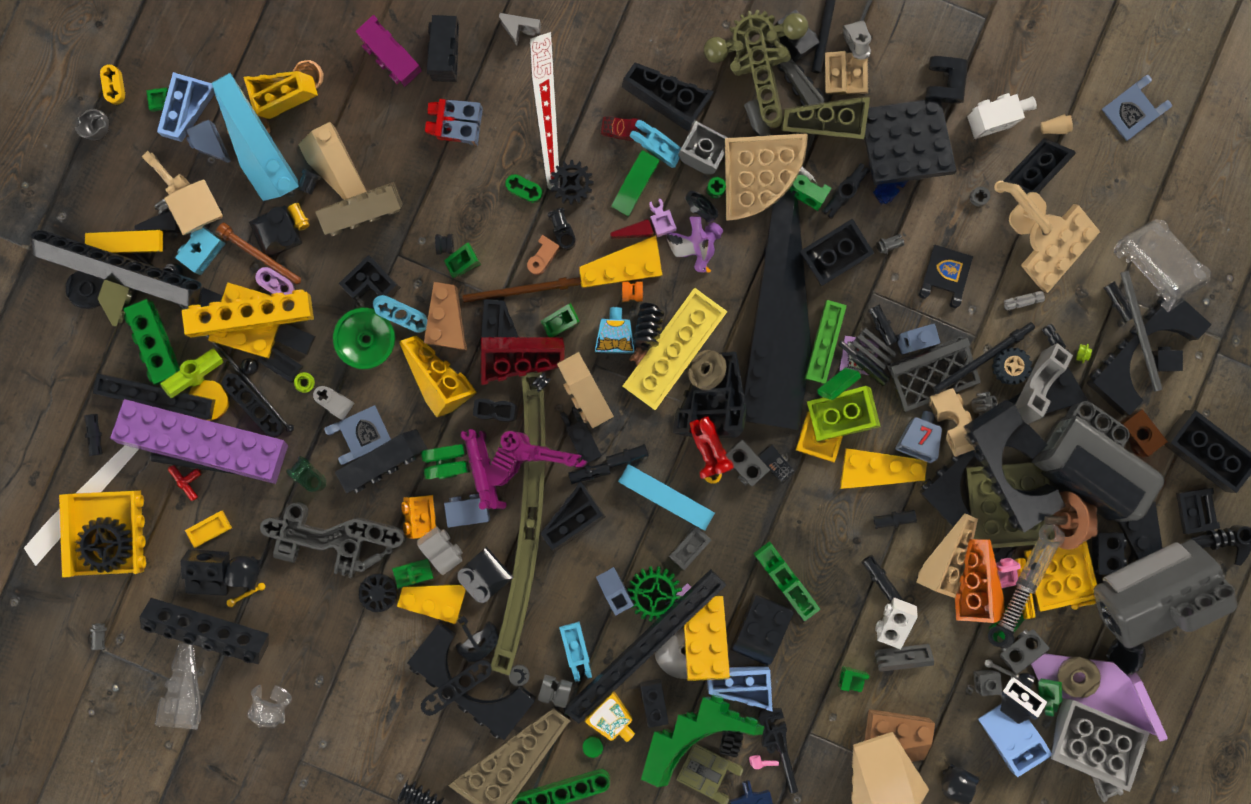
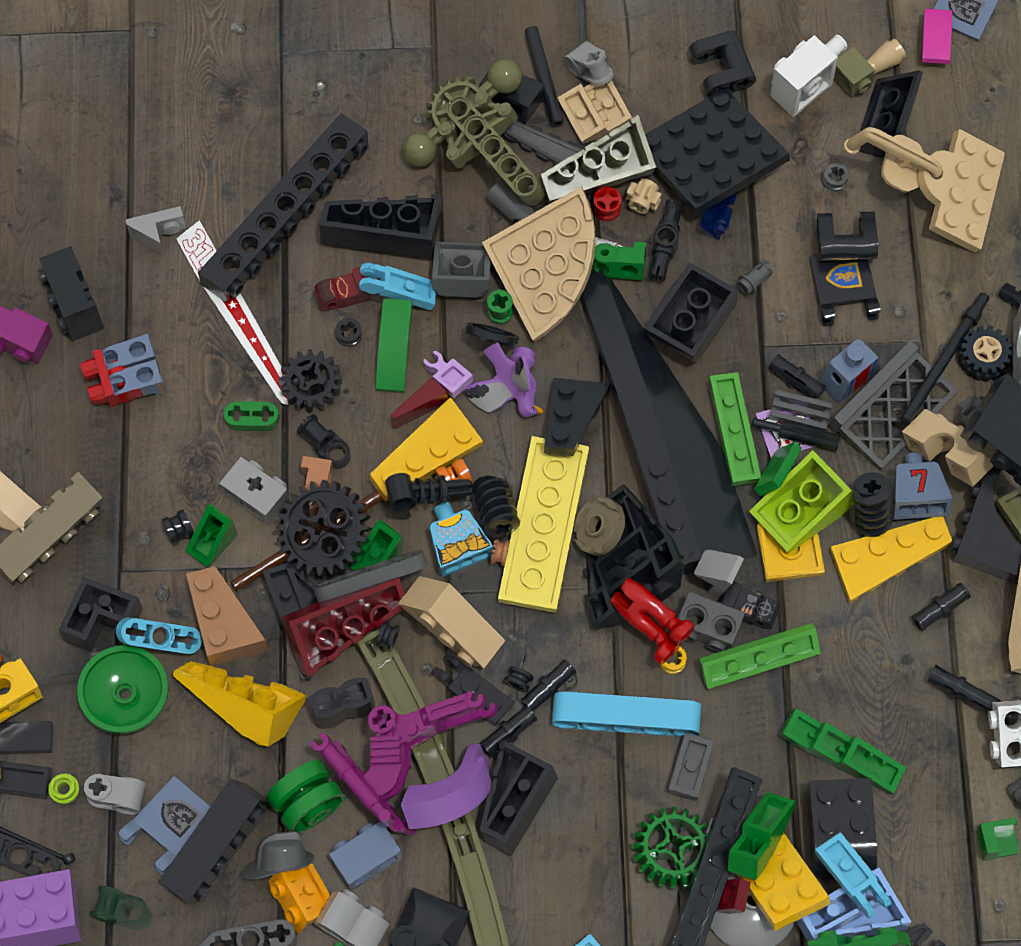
camera: 20 degrees left, 20 degrees down
(413, 490) = (278, 854): none -> dark grey piece
(494, 233) = (261, 503): none -> light grey brick
(533, 505) = (450, 798): none -> medium lavender arch
(543, 277) = (331, 502): none -> black gear
(548, 337) = (370, 576): none -> dark grey beam
(593, 293) = (405, 495): none -> black piece
(611, 165) = (352, 339): none -> black bush
(611, 443) = (518, 679): none -> black bush
(614, 591) = (619, 868): sand blue slope -> none
(669, 13) = (341, 133): none -> black brick
(674, 645) = (734, 896): none -> dark red tile
(708, 617) = (760, 835): none -> green slope
(727, 282) = (570, 413): none -> black wing
(750, 667) = (851, 873): none -> medium azure hinge
(766, 498) = (759, 656): none -> bright green plate
(767, 436) = (718, 570): none -> light grey slope
(823, 142) = (609, 197): none -> red wheel
(846, 152) = (643, 196): none -> tan gear
(885, 437) = (872, 504): none -> black piece
(962, 252) = (849, 246): none -> black connector
(1024, 300) = (957, 271): light grey axle -> none
(1030, 128) = (853, 73): none -> olive brick
(1100, 126) = (937, 36): none -> dark pink slope

